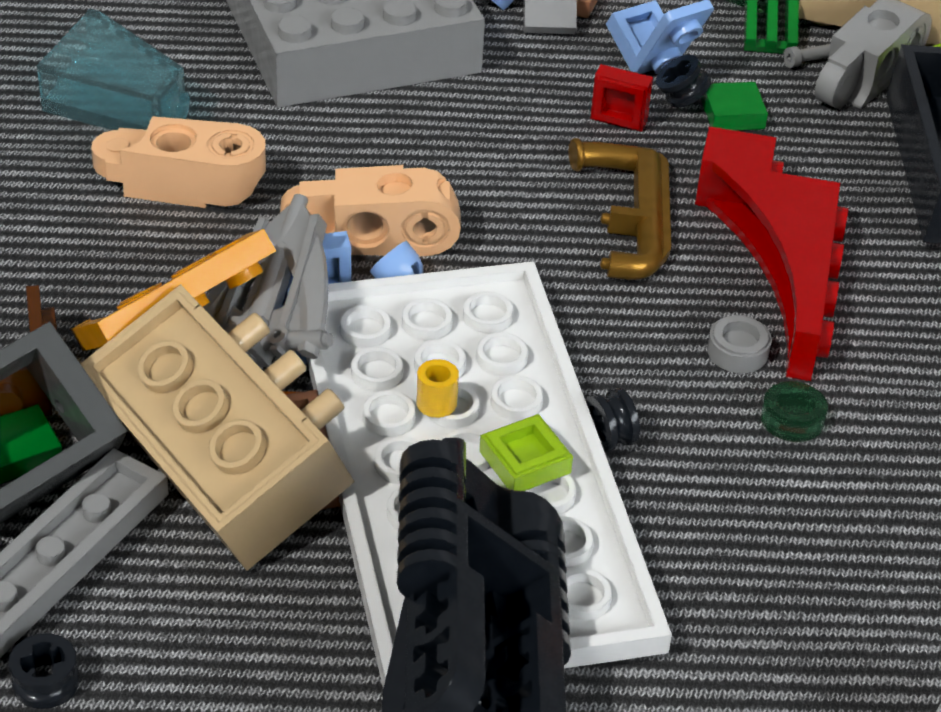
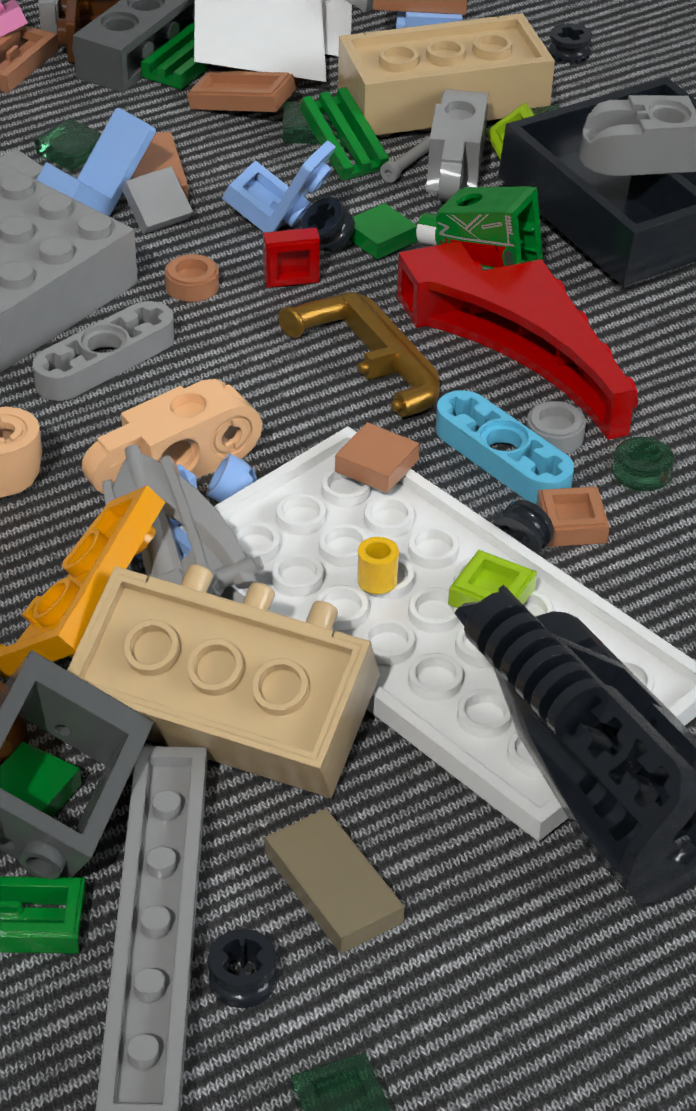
camera: 30 degrees left, 0 degrees up
(182, 639) = (334, 880): none -> dark tan tile
(361, 117) = (73, 366): none -> light grey beam
(527, 84) = (191, 278): none -> nougat tile
(527, 297) = (377, 457): none -> nougat tile
(663, 359) = (474, 423): none -> medium azure beam
(681, 429) = (575, 515): none -> nougat tile
(817, 138) = (491, 222): none -> green torso

